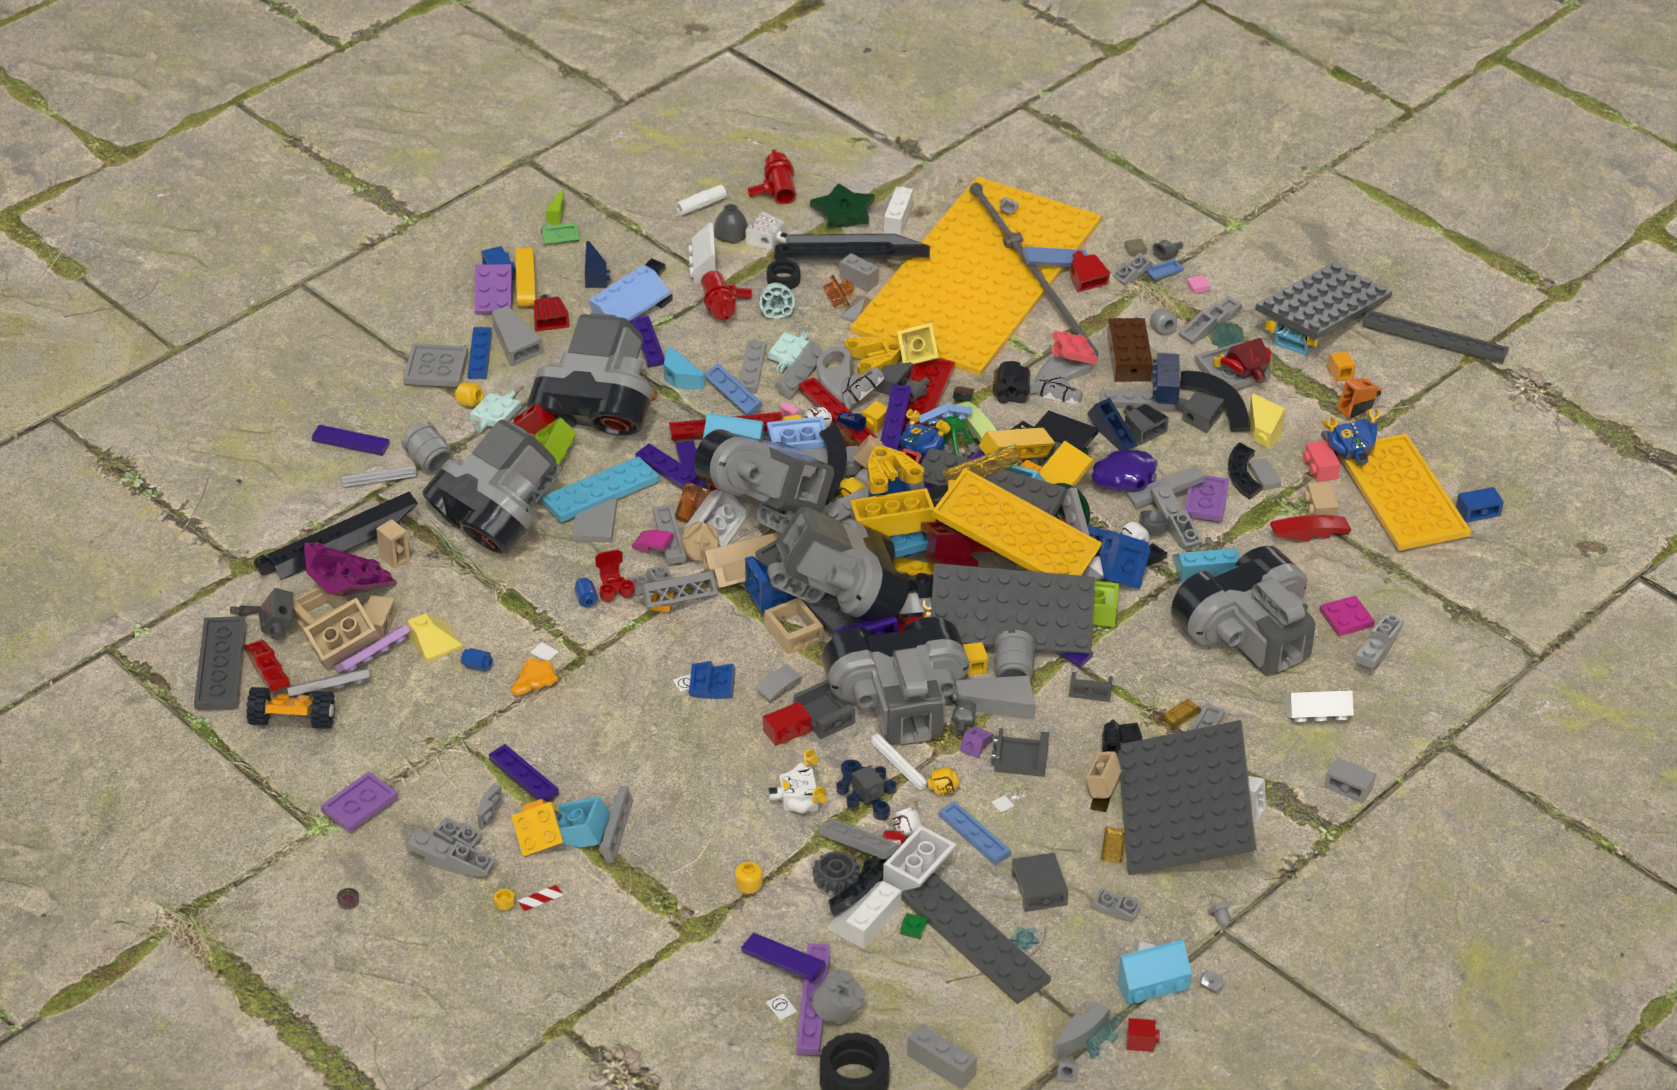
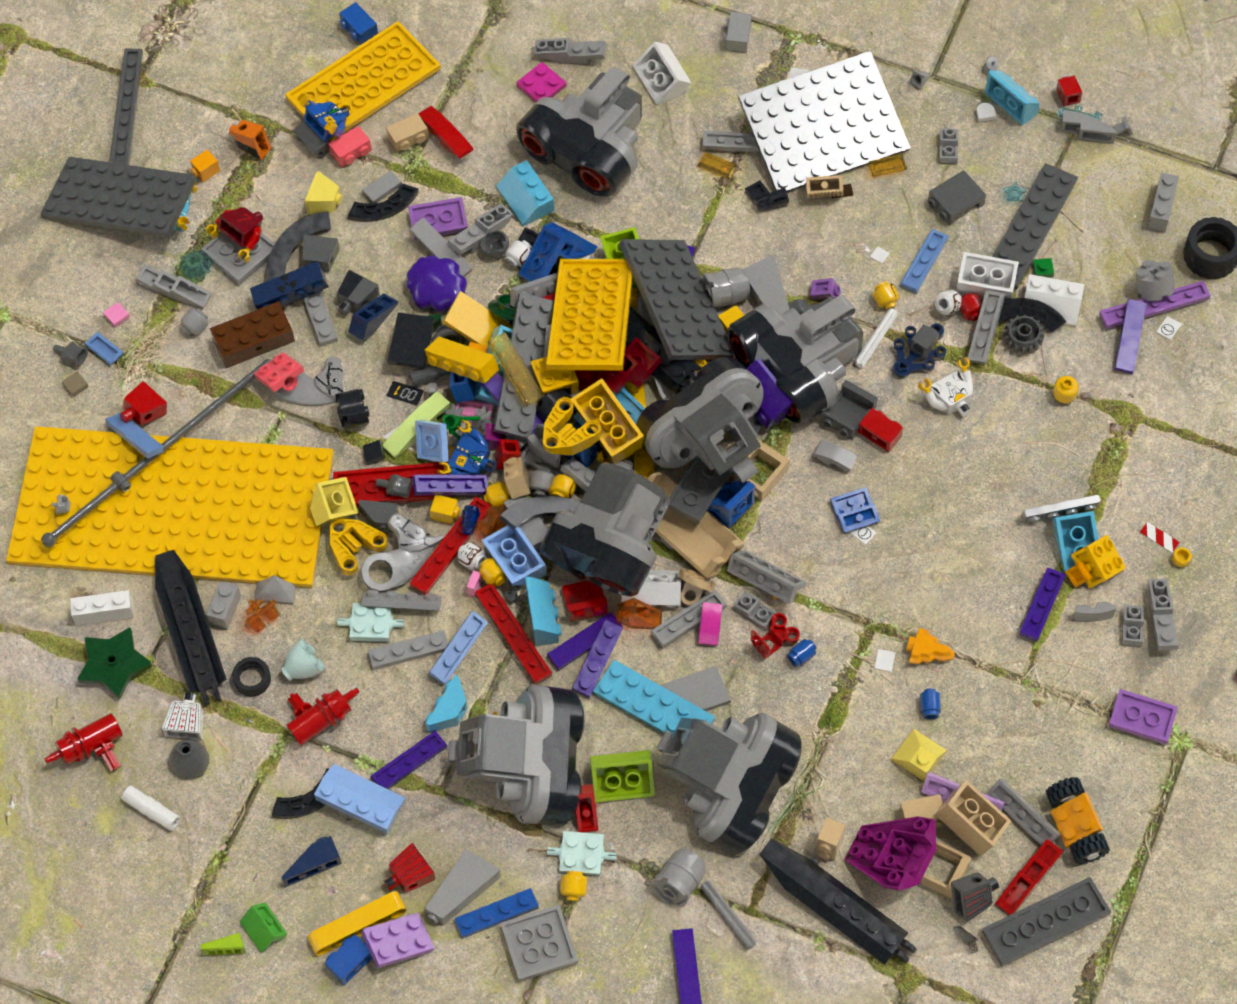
camera: 110 degrees left, 20 degrees up
(702, 253) = (258, 756): white slope -> none
(1020, 754) = (823, 254): dark grey panel -> none
(1090, 689) = (720, 231): dark grey hinge -> none
(1131, 271) = (116, 373): light grey slope -> none

